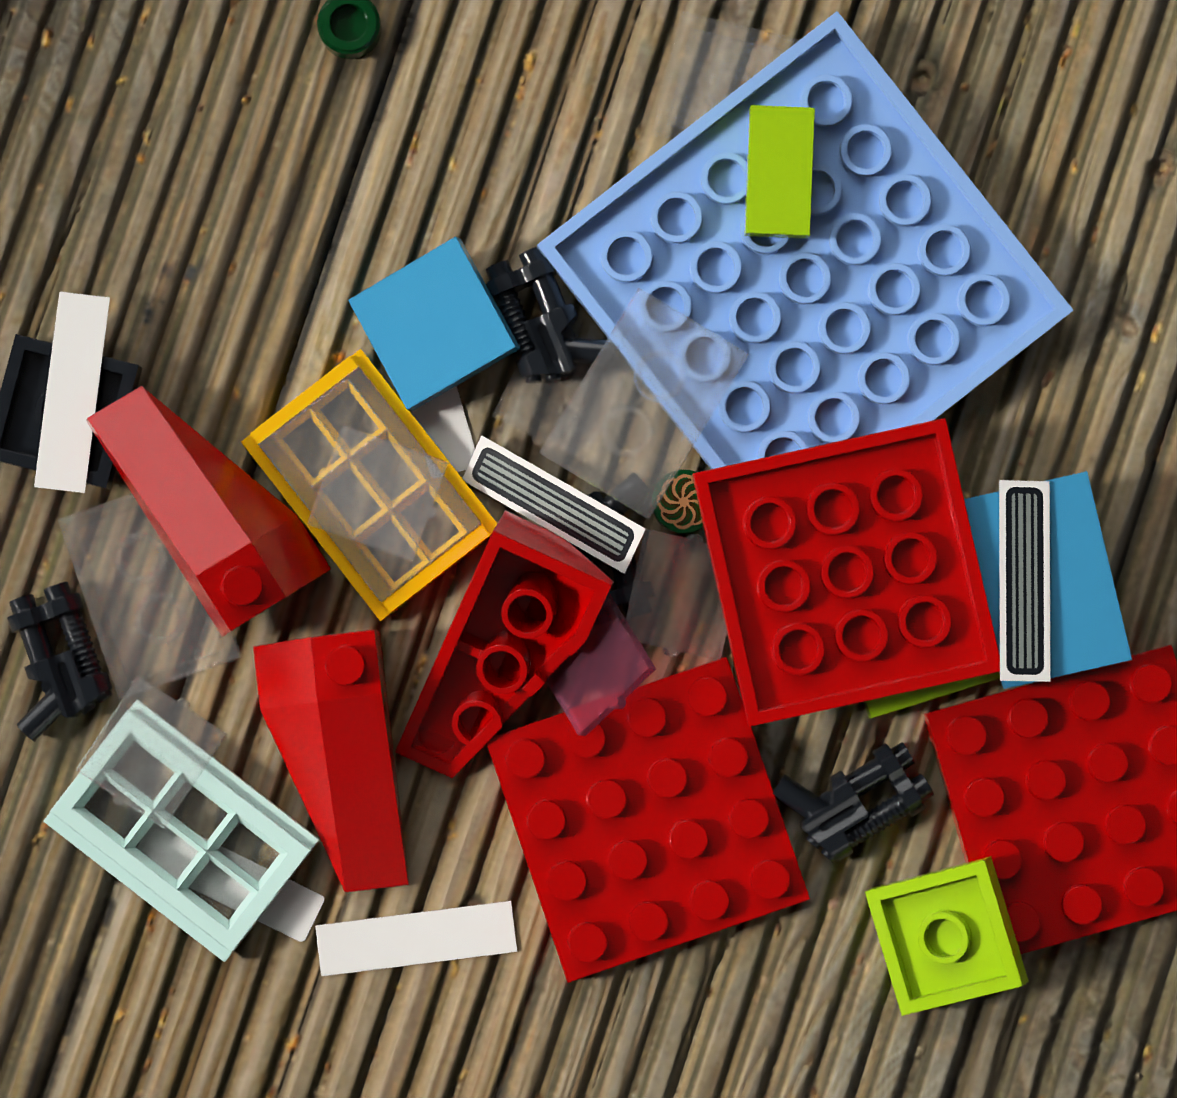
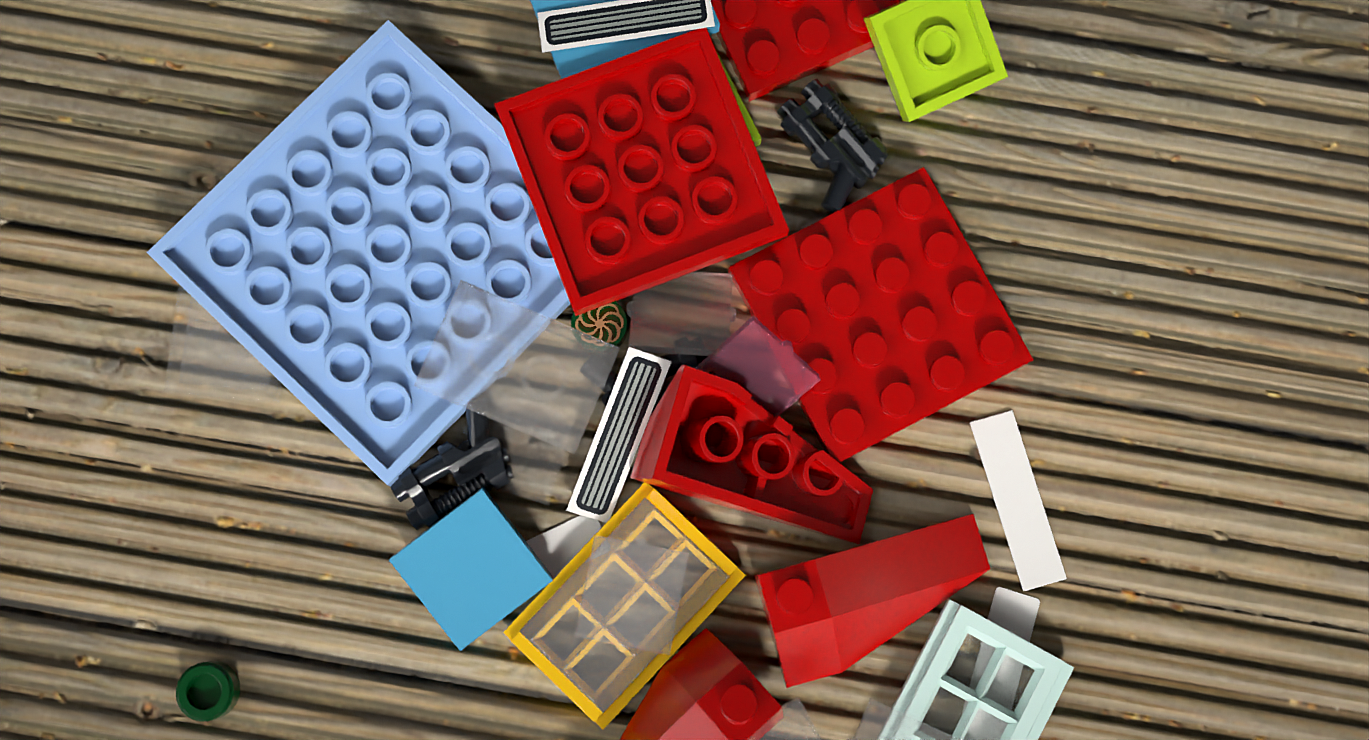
camera: 100 degrees left, 5 degrees down
(779, 171) = (294, 279): lime tile -> none

